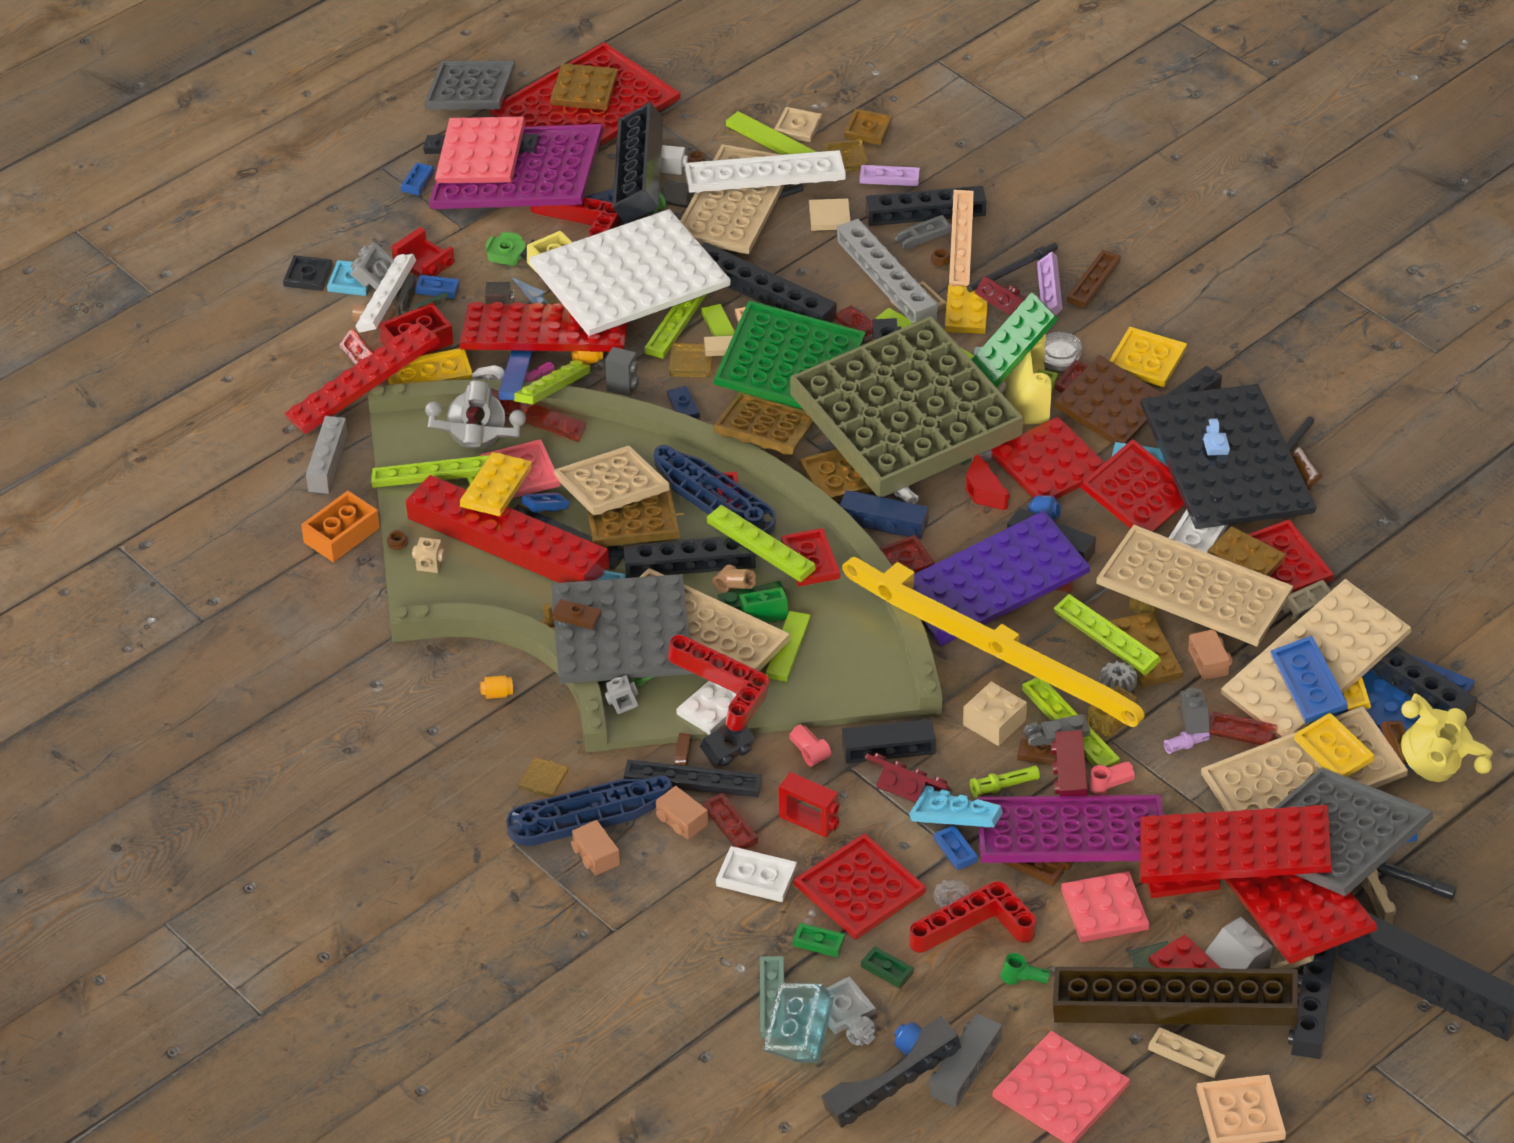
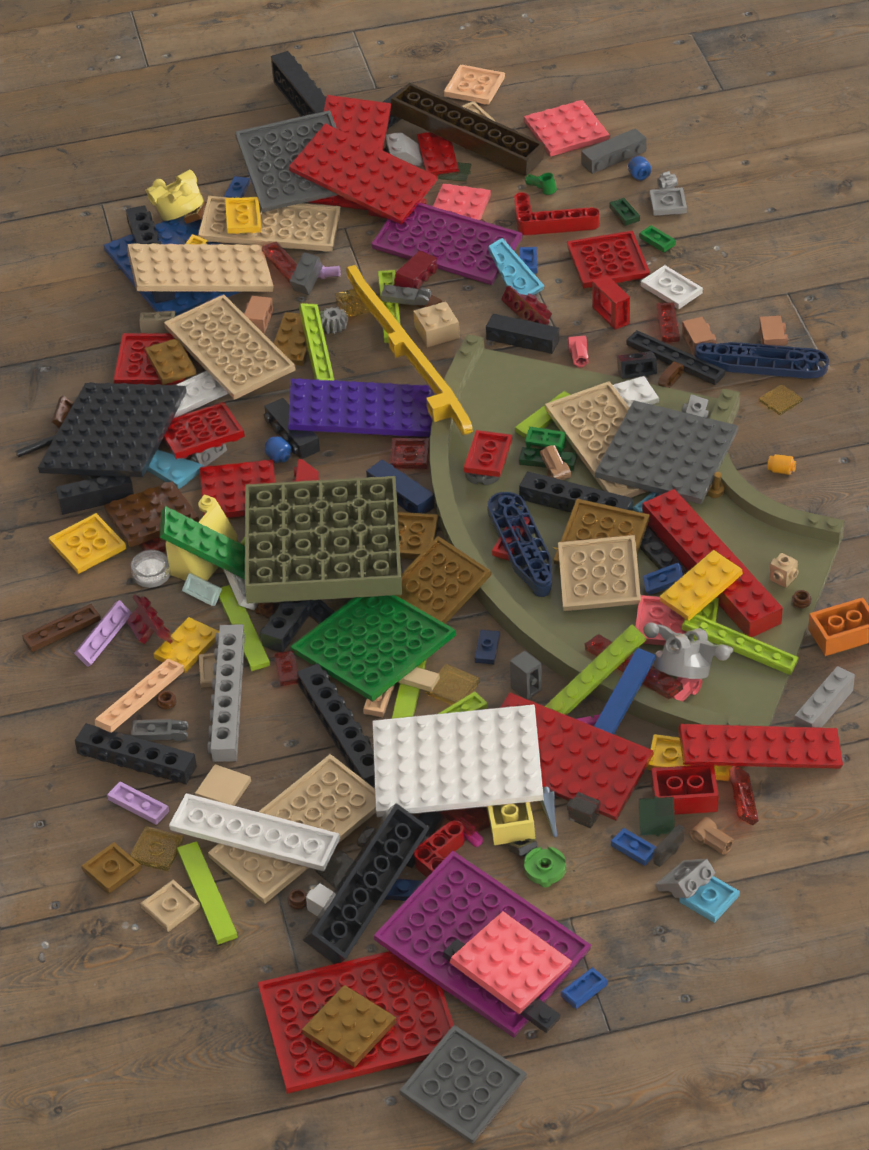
camera: 150 degrees left, 0 degrees up
(307, 273) = (749, 920): black tile -> none
(385, 292) = (691, 835): white plate -> none
(428, 256) = (628, 887): red panel -> none
(488, 373) = (640, 715): white plate -> none
(576, 614) = (699, 457): reddish brown plate -> none
(726, 672) = (607, 370): red beam -> none
(761, 543) = (520, 469): lime plate -> none
(770, 977) = (709, 219): sand green plate -> none
(799, 1022) = (704, 186): clear light blue slope -> none
(853, 1099) = (635, 144): black arch -> none
(941, 892) = (546, 240): clear gear -> none
(994, 782) = (459, 287): lime pin -> none
(1038, 254) = (80, 671): black bar -> none
(1106, 777) = (395, 263): coral piece -> none
(1215, 442) = (118, 423): light blue plate -> none
(1308, 679) = (221, 248): blue plate -> none

